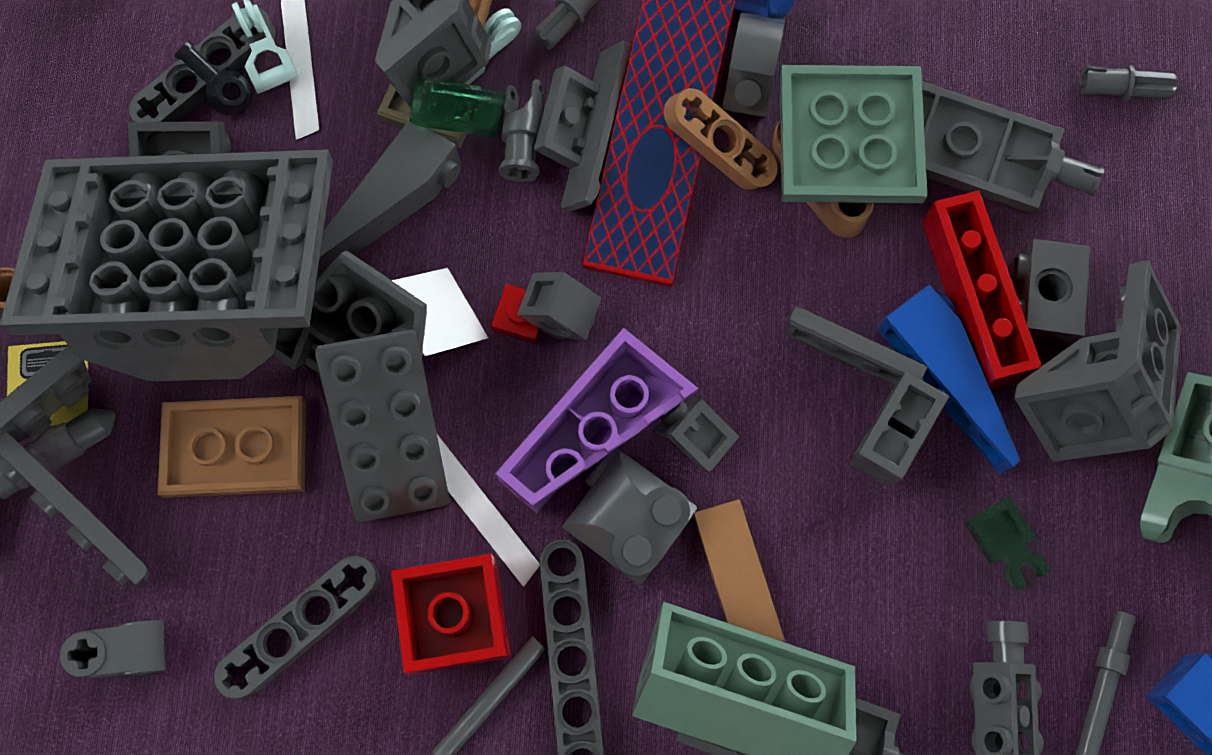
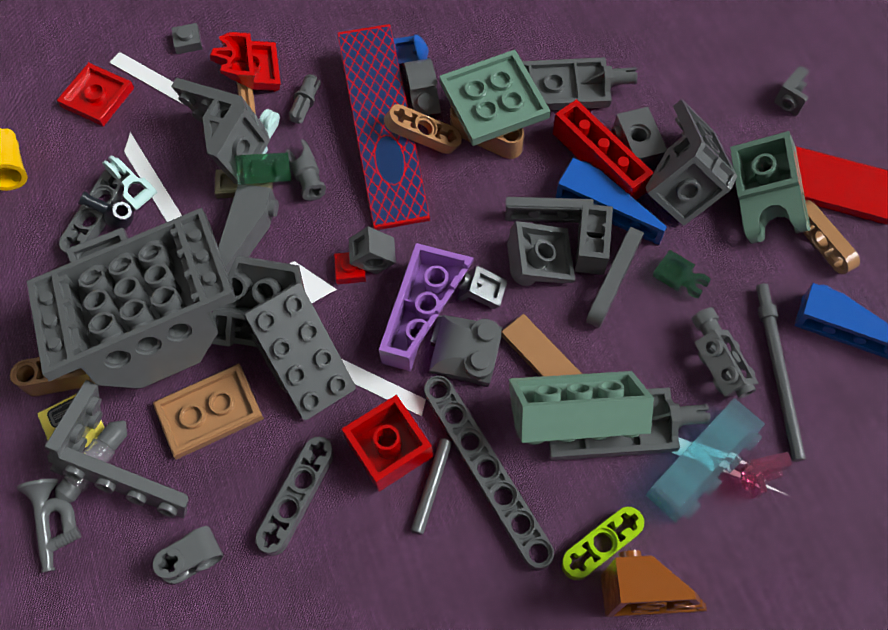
camera: 25 degrees left, 10 degrees down
(580, 121) = (338, 152): dark grey bracket -> none
(807, 417) = (539, 254): none -> dark grey slope
(904, 502) = (614, 277): none -> dark grey beam
(1127, 82) = (625, 24): dark grey axle -> none

